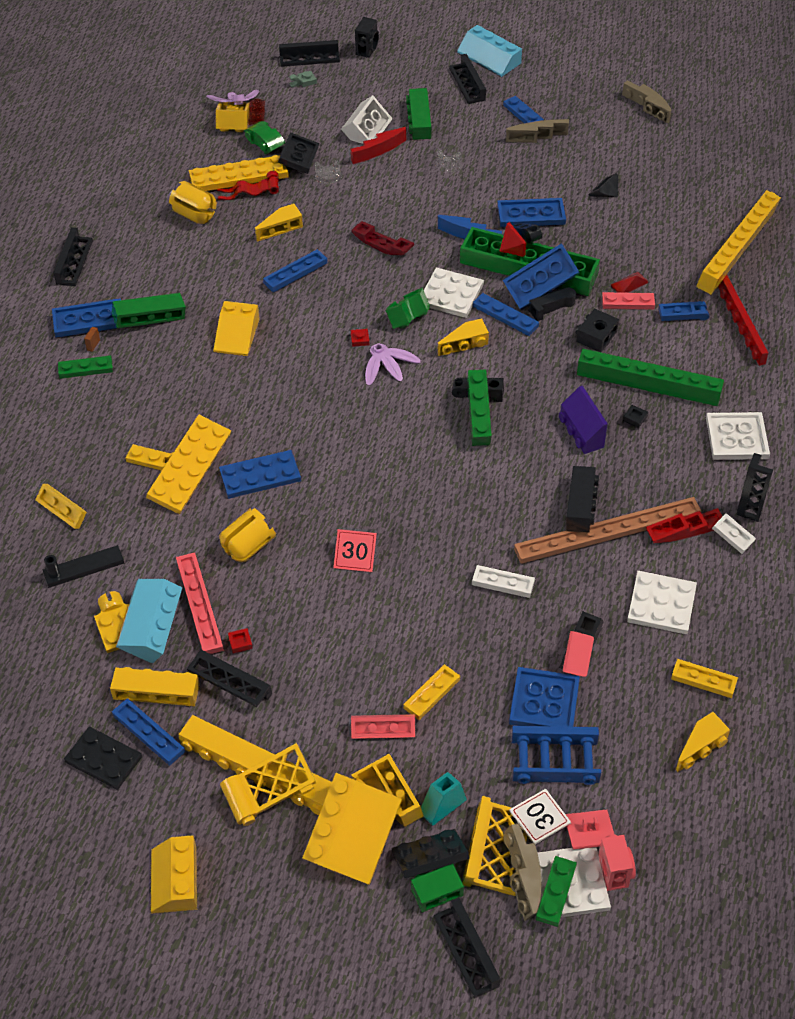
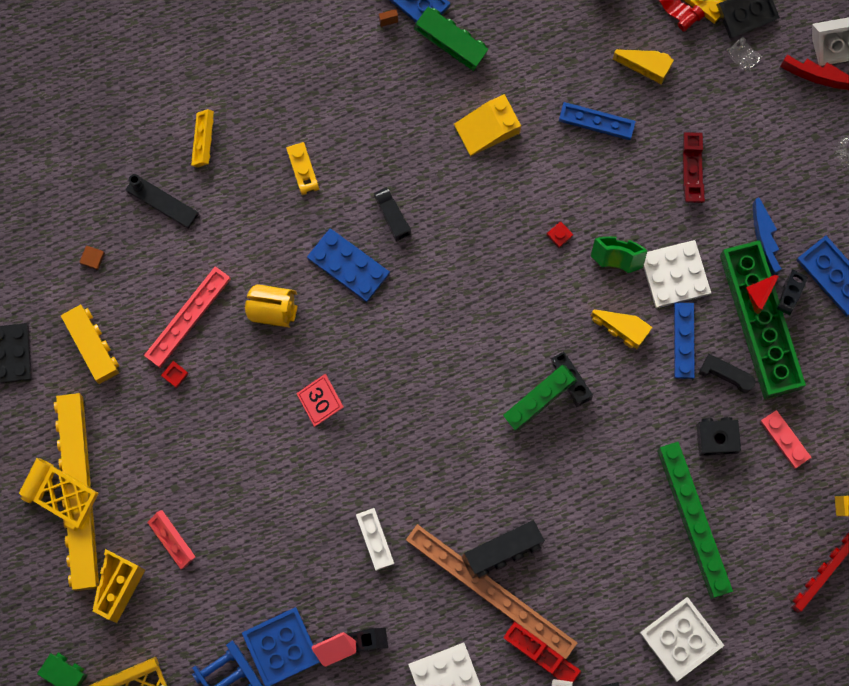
camera: 55 degrees right, 25 degrees up
(80, 644) = (92, 257): none -> dark orange tile
(85, 367) = (358, 36): green plate -> none
(111, 619) = (127, 271): yellow plate -> none
(148, 731) = (50, 369): blue plate -> none
(149, 618) = (141, 293): medium azure slope -> none
(188, 464) = (315, 202): yellow plate -> none
(230, 674) = (139, 397): black fence -> none
(247, 422) = (392, 214): none -> black leg
(352, 828) = (60, 581): yellow slope -> none
(382, 353) = (550, 272): lavender plant -> none
(430, 853) = (84, 650): black plate -> none
(431, 692) = (228, 554): yellow plate -> none
(442, 798) = (136, 629): teal slope -> none
(541, 276) = (741, 347): blue plate -> none
(583, 421) = (592, 495): dark purple slope -> none
(629, 283) = (811, 426): red slope -> none
(635, 416) = (639, 535): black plate -> none
(683, 311) = (807, 498): blue plate -> none

